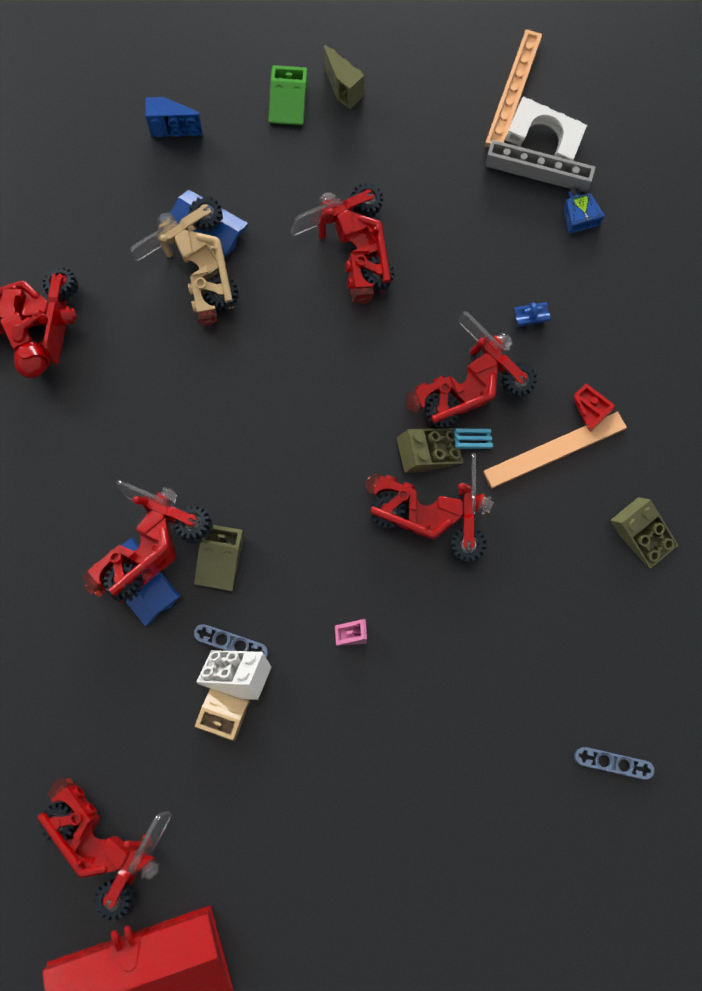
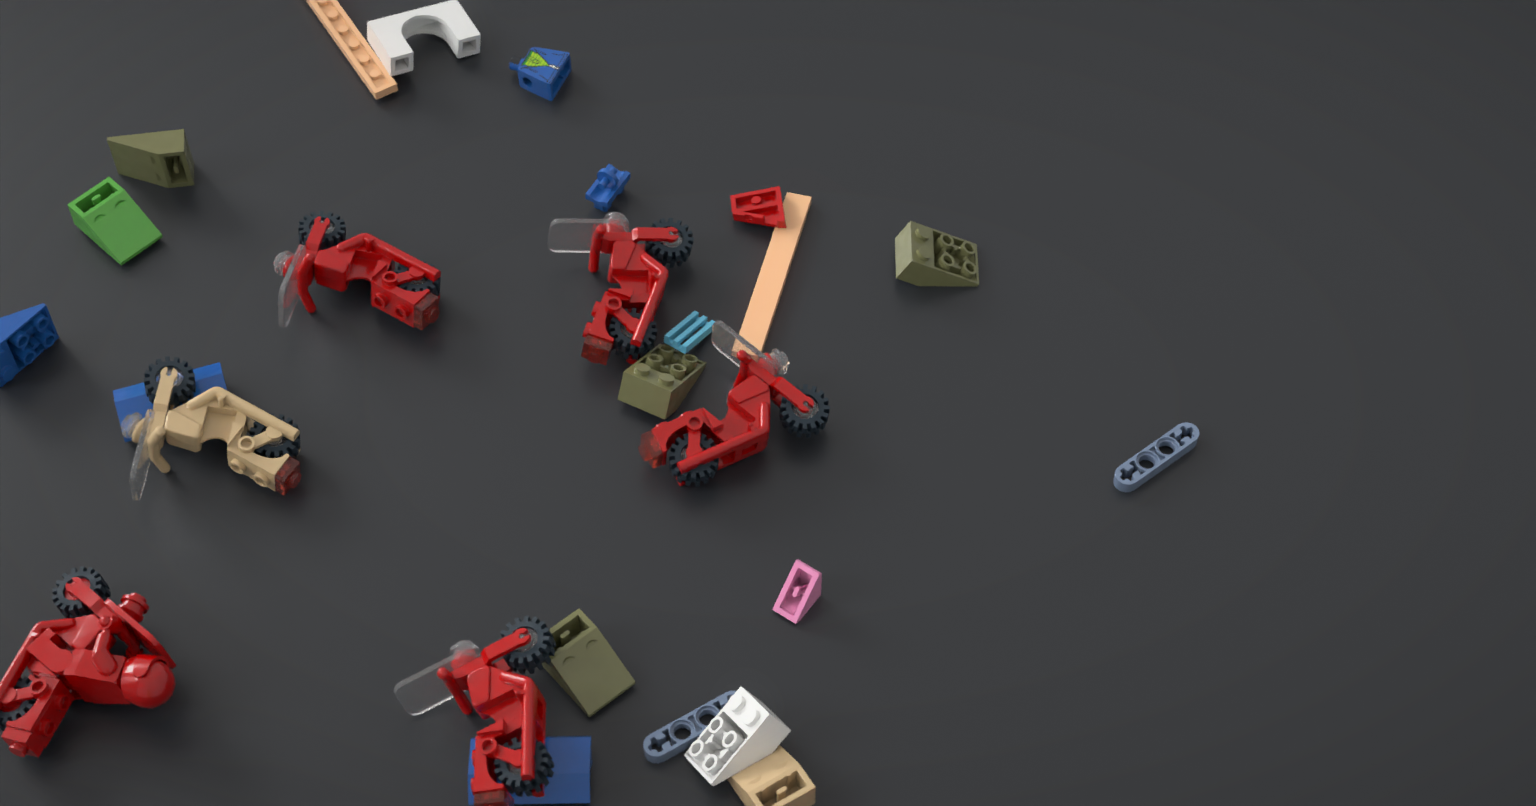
camera: 50 degrees left, 20 degrees down
(539, 166) = (454, 67): light grey brick -> none

